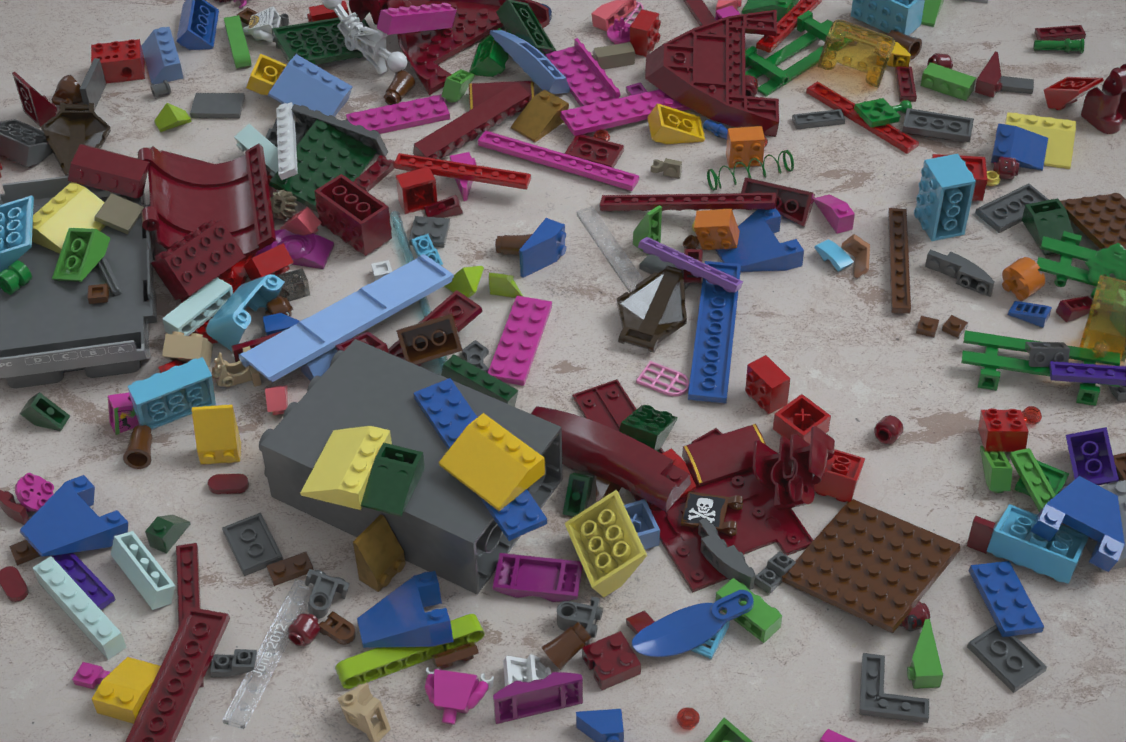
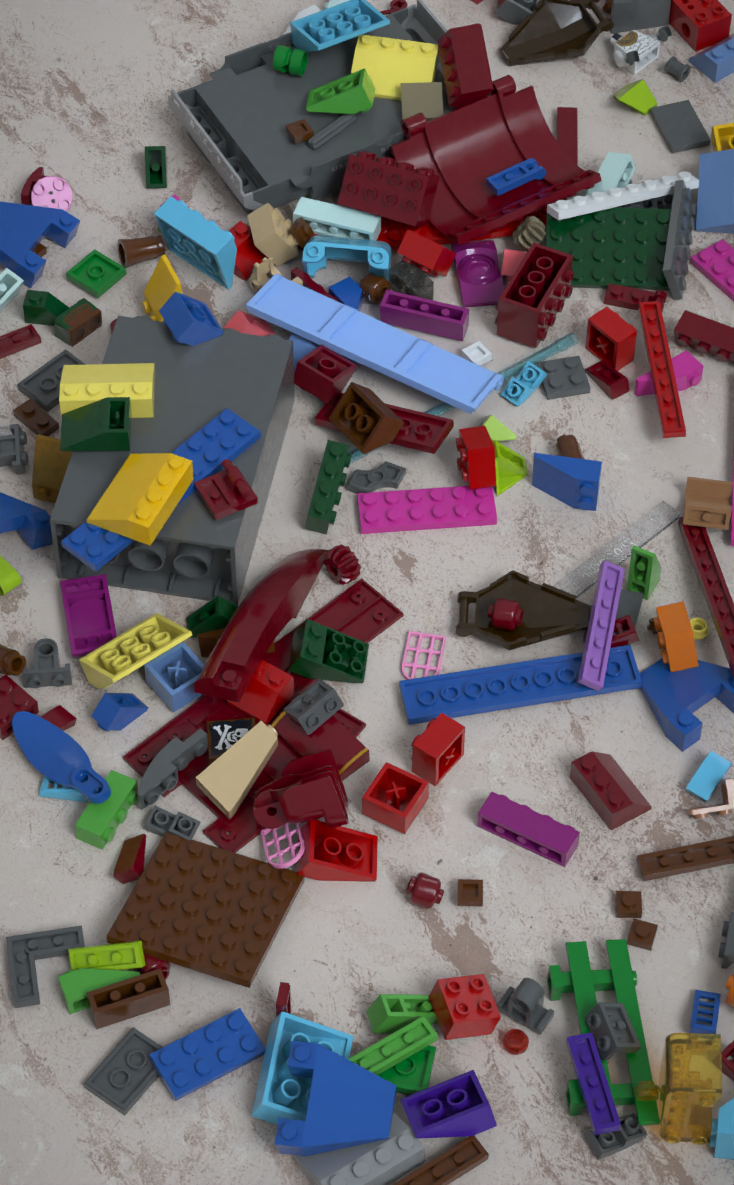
camera: 70 degrees right, 5 degrees up
(126, 102) = (637, 49): none -> white torso
(145, 485) = (96, 273): none -> green plate
(198, 329) = (301, 232): none -> reddish brown plate
(198, 509) = (77, 322): none -> reddish brown piece
(224, 193) = (515, 176): none -> blue plate
(302, 393) = (189, 320): none -> blue slope
(328, 285) = (424, 315): none -> magenta brick
(498, 288) = (476, 457): none -> red brick
(508, 410) = (226, 491): none -> dark red plate
(561, 396) = (342, 564): none -> dark red gear
(596, 191) = (707, 503): none -> medium nougat panel
(650, 580) = (118, 710): none -> blue slope
(652, 316) = (505, 614): none -> dark red head
(704, 441) = (314, 706): none -> dark grey bracket
(748, 505) = (236, 770): none -> tan slope
(802, 604) = (131, 860): none -> dark red slope
(828, 310) = (608, 789): none -> dark red slope
(831, 505) = (291, 847): none -> bright pink window
(849, 358) = (528, 829): none -> magenta brick
(896, 406) = (470, 892): none -> reddish brown plate
(905, 639) = (108, 956): none -> lime tile
(947, 634) = (128, 998): none -> reddish brown brick
(1008, 394) = (526, 1005): none -> dark grey pin

